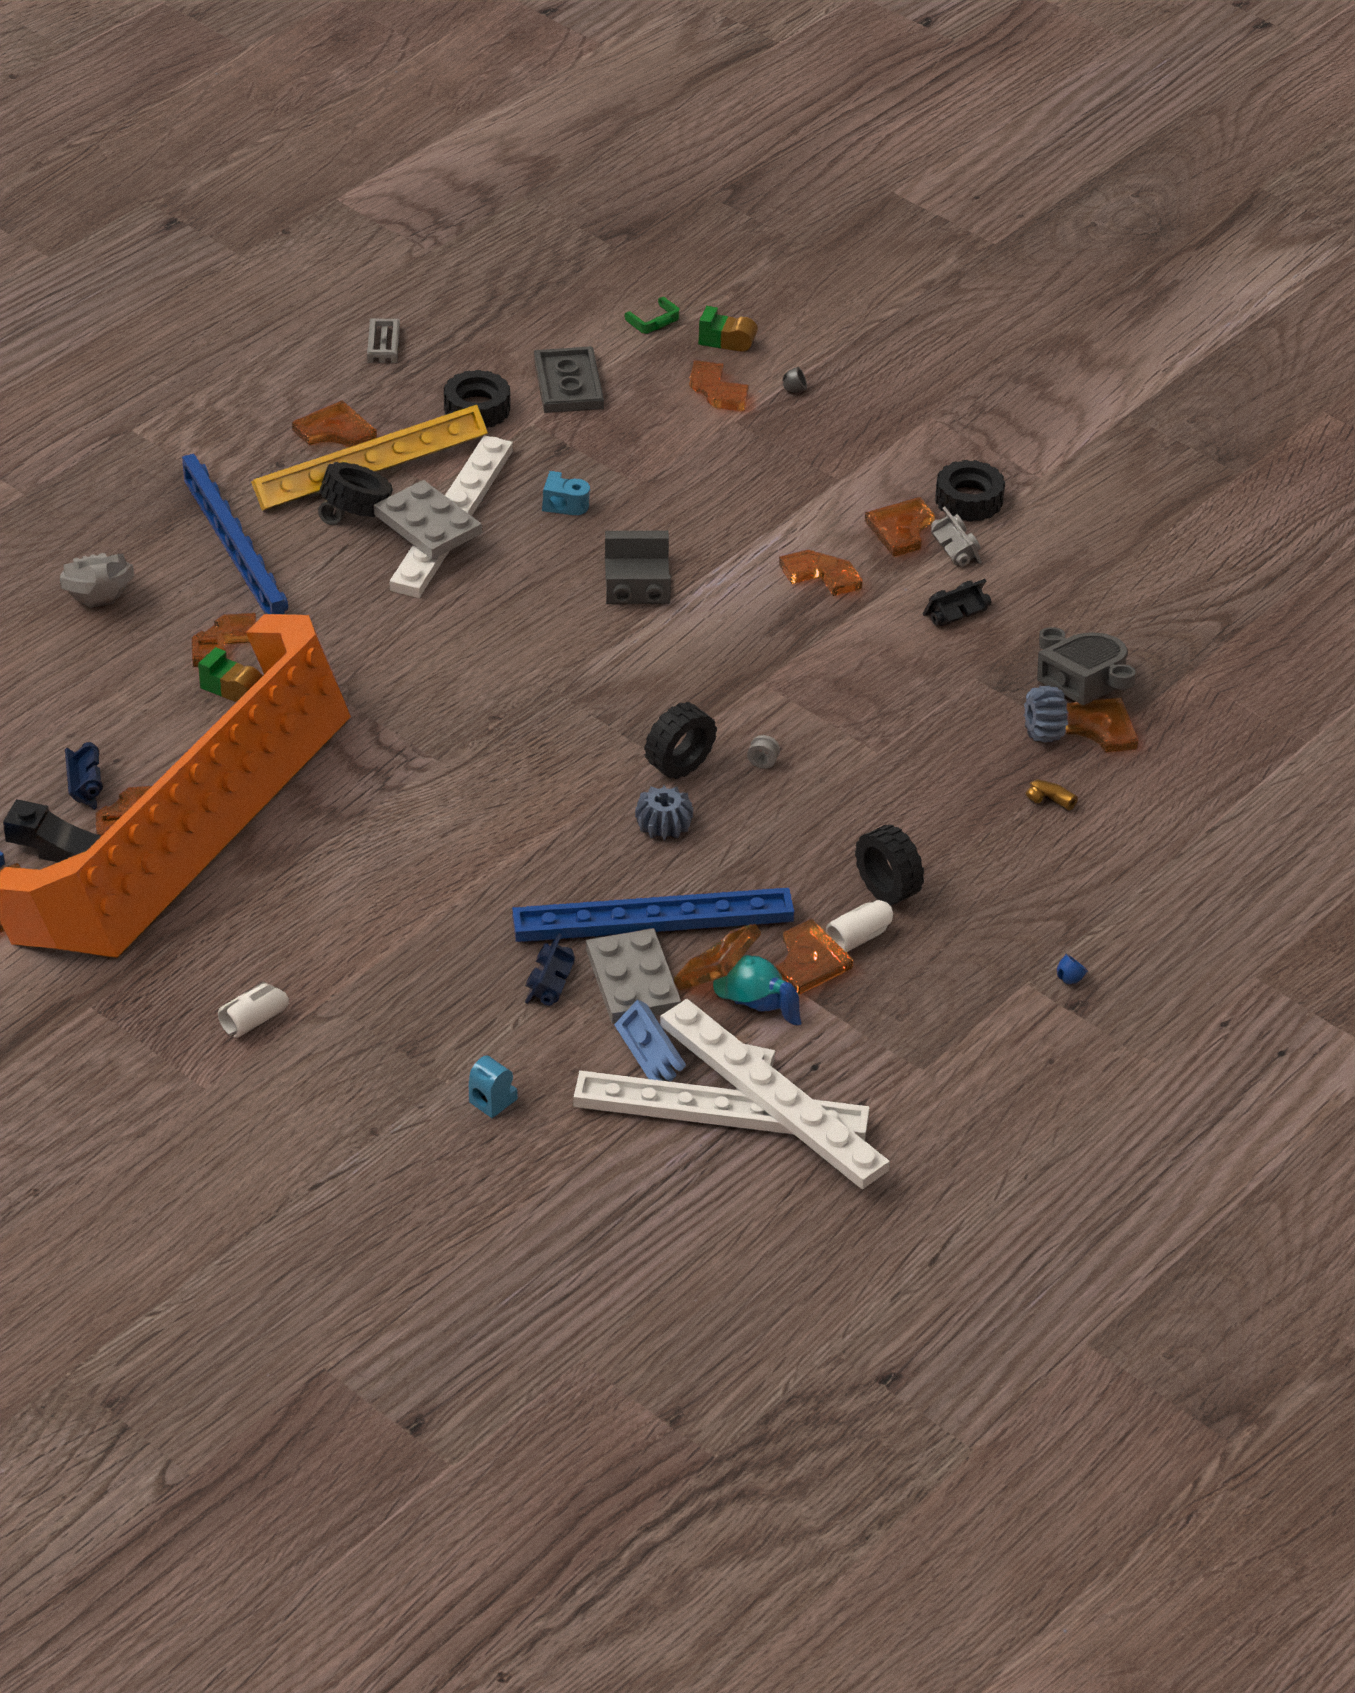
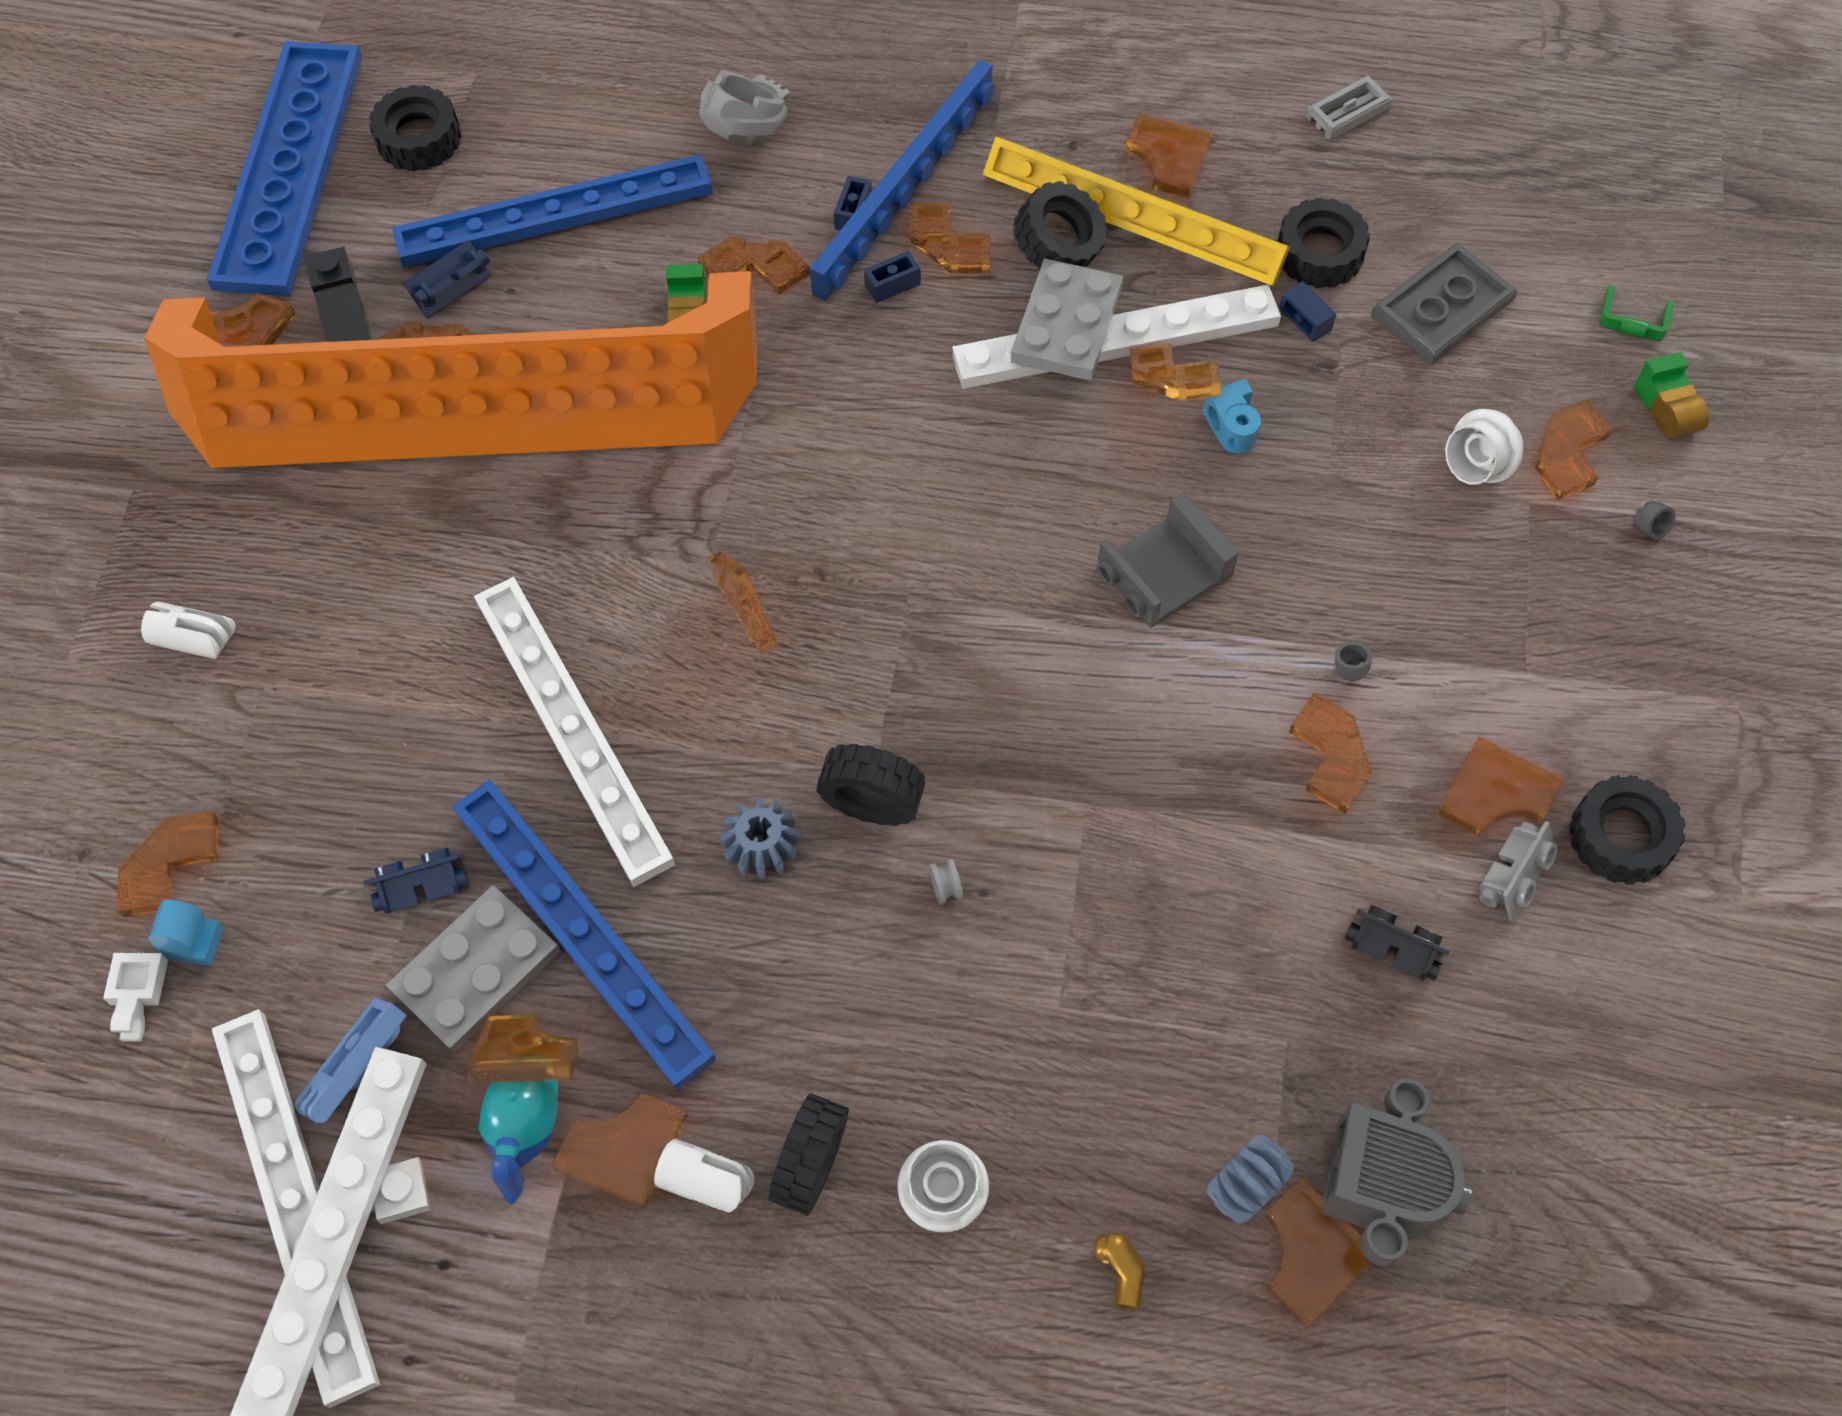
camera: 60 degrees right, 20 degrees up
(75, 707) = (553, 210): none -> blue plate
(226, 573) = (851, 198): none -> dark blue piece
(304, 582) = (892, 276): none -> dark blue piece
(311, 549) = (952, 251): none -> clear orange tile
(421, 1099) = (146, 873): none -> clear orange tile
(492, 738) = (740, 594): none -> clear orange tile
(499, 506) = (1156, 371): none -> clear orange tile
(505, 861) = (575, 733): none -> white plate
(507, 1126) = (133, 983): none -> white plate
(520, 430) = (1307, 311): none -> dark blue piece
(689, 409) = (1484, 447): none -> white piece
(774, 532) = (1348, 658): none -> dark grey hinge
(948, 830) = (943, 1186): none -> white piece

